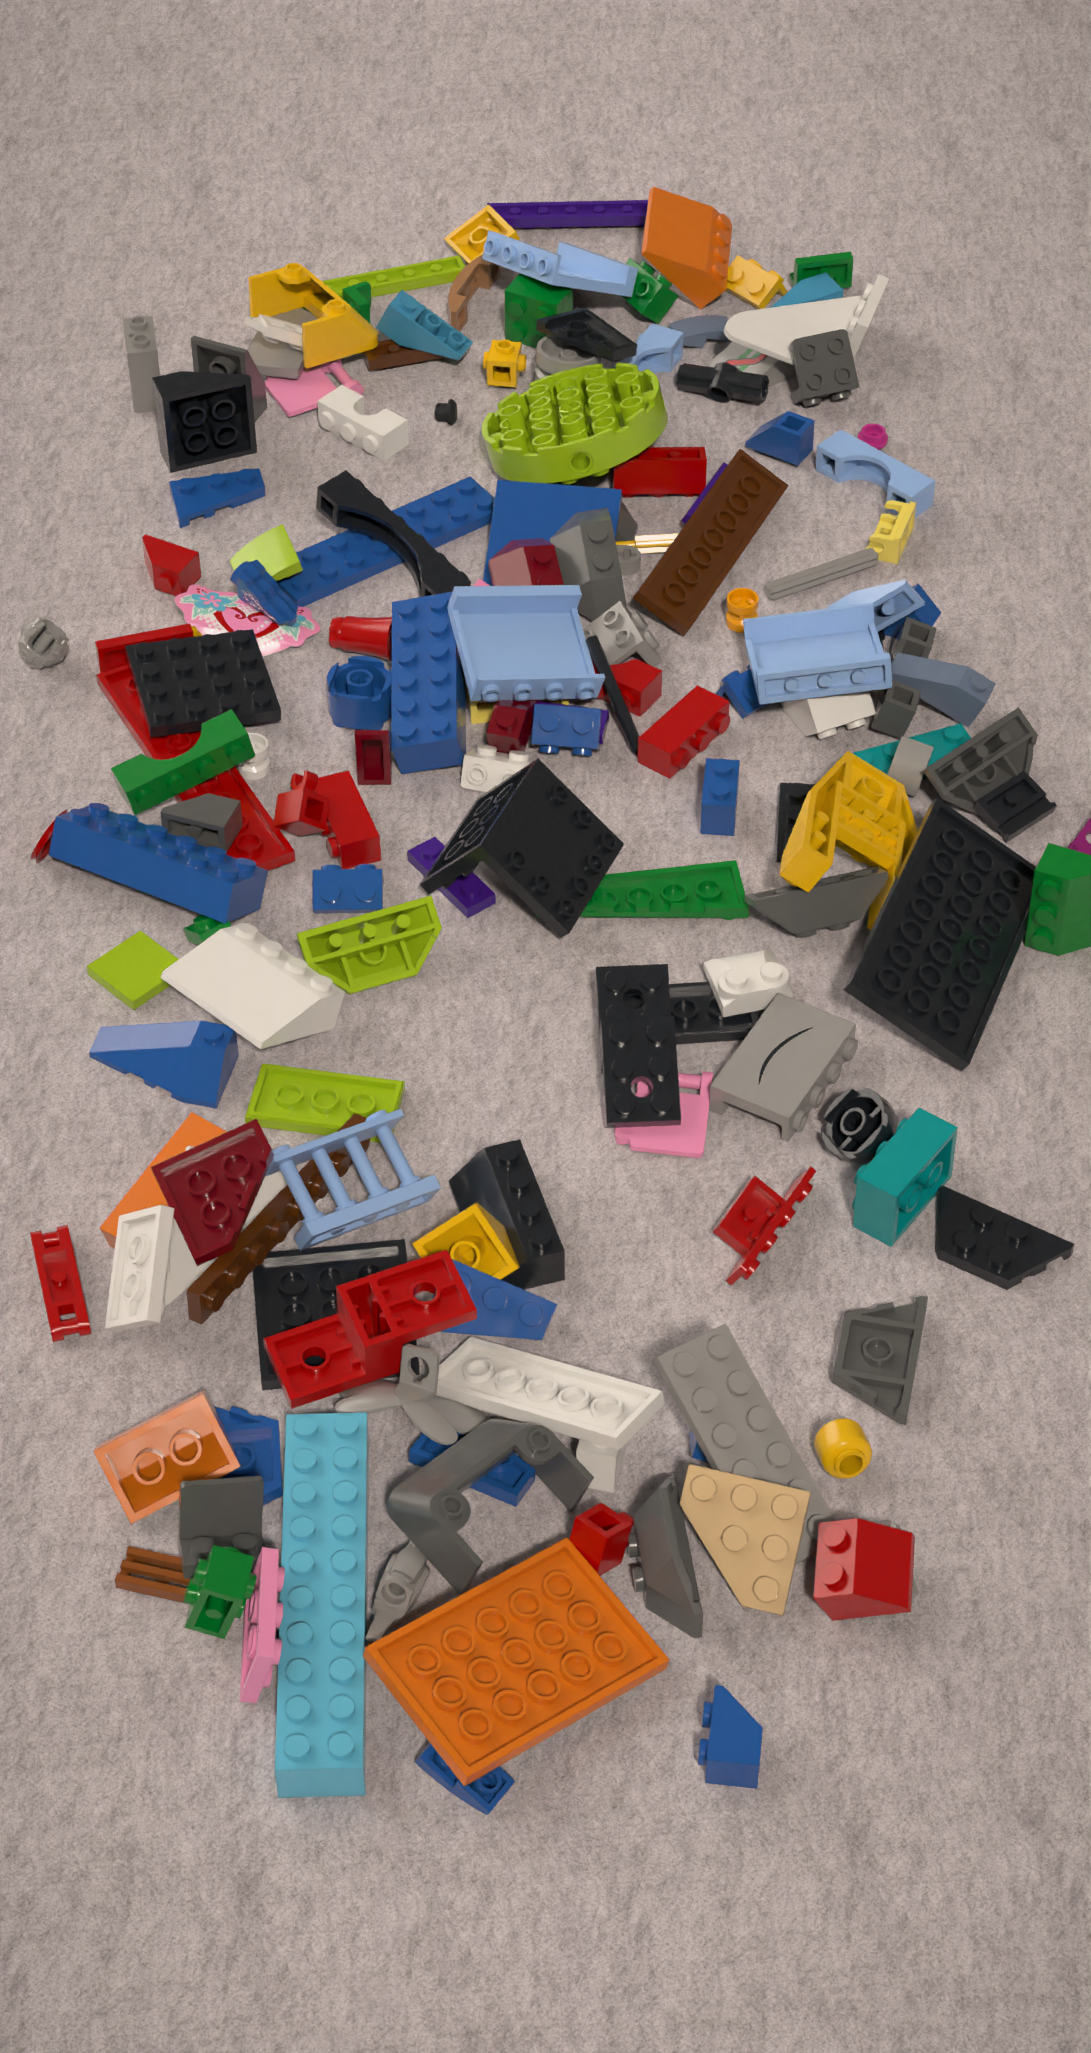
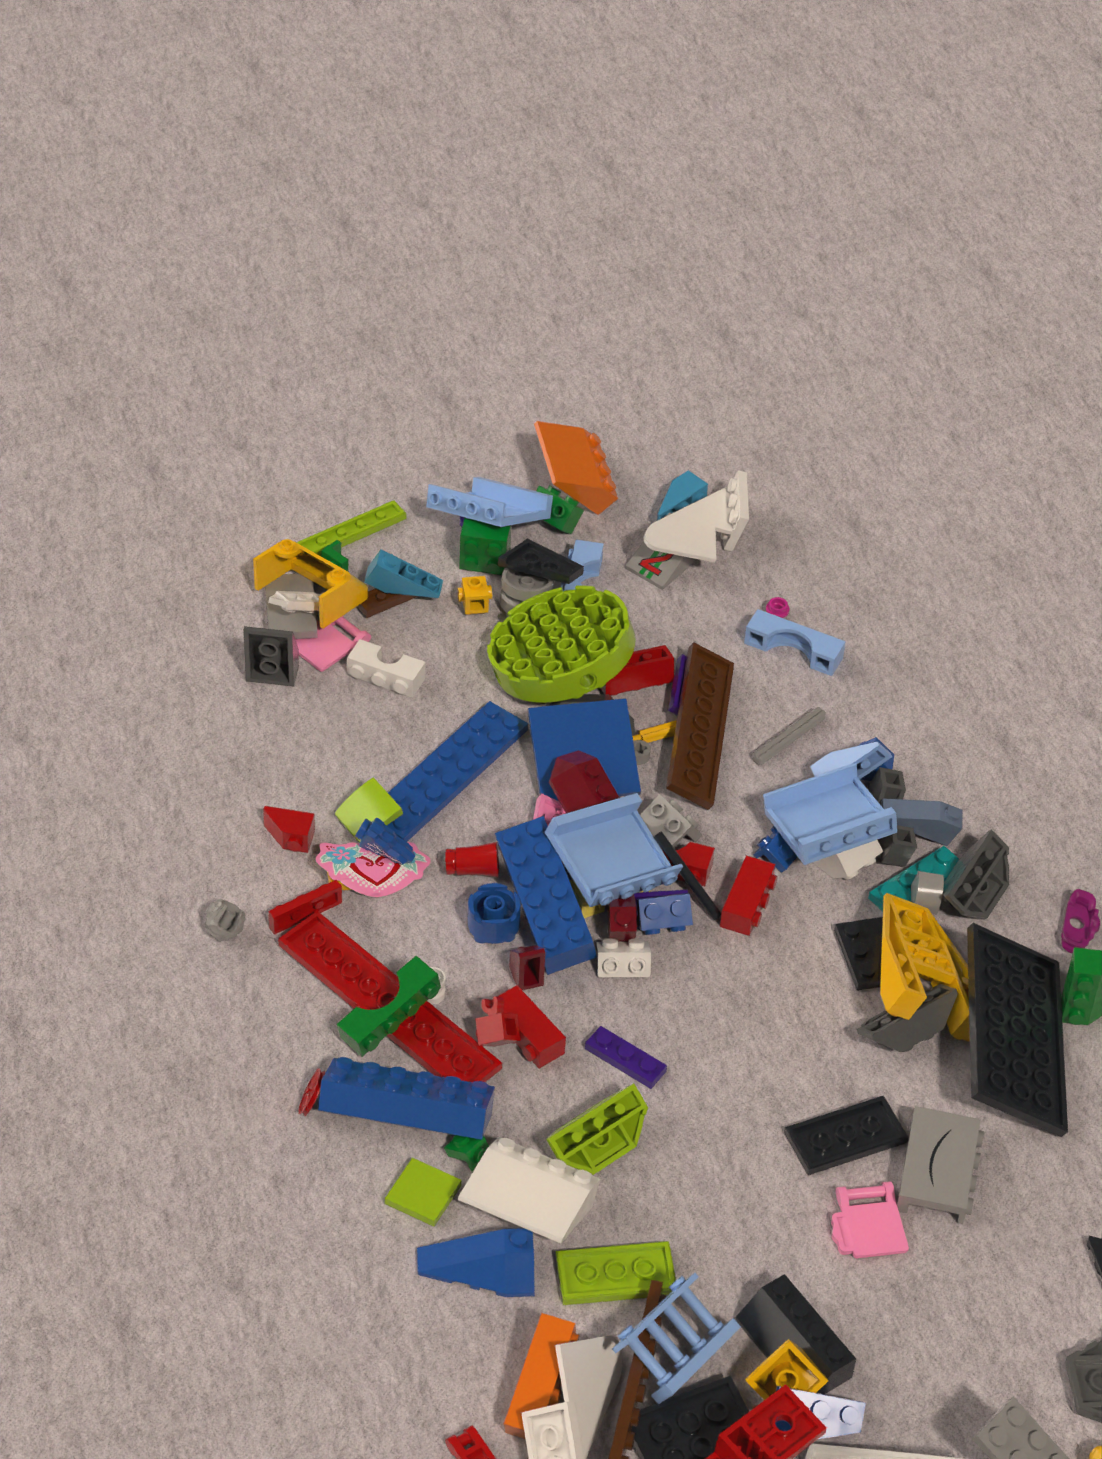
camera: 20 degrees left, 0 degrees up
(142, 360) = (195, 649): light grey window -> none
(199, 679) = (367, 930): black plate -> none
(203, 418) = (268, 693): black slope -> none
(207, 818) = (428, 1053): dark grey slope -> none
(208, 493) = (290, 755): blue wing -> none
(215, 1188) = (594, 1376): dark red plate -> none
(347, 889) = (556, 1087): blue bracket -> none
(354, 507) = (423, 751): black arch -> none
(446, 412) = (445, 645): black piece -> none
(471, 236) = (407, 482): yellow slope -> none
(475, 275) = (418, 516): medium nougat slope -> none
(536, 842) = (683, 1013): black bracket -> none
(573, 213) = (464, 447): dark purple plate -> none
(591, 560) = (625, 761): dark grey wedge -> none
(637, 1046) = (832, 1173): black bracket -> none
(672, 892) = (792, 1036): green wing -> none
(700, 328) = (611, 534): sand blue slope -> none
(720, 797) = (799, 946): blue brick -> none
(722, 382) = (648, 581): black piece -> none
(741, 605) = (746, 780): light orange wheel -> none
(747, 981) = (885, 1100): white slope -> none
(752, 283) = (633, 487): yellow bracket -> none
(755, 1217) = (974, 1296): red bracket -> none
(784, 437) = (714, 622): blue slope -> none
(823, 367) = (725, 558): dark grey bracket -> none
(837, 266) = (693, 462): green bracket -> none
(858, 1125) = (1018, 1203): black cylinder -> none
(893, 531) = (826, 688): light yellow hinge -> none
(904, 1176) = (1064, 1237): teal brick -> none
(1014, 806) = (1011, 908): black plate -> none

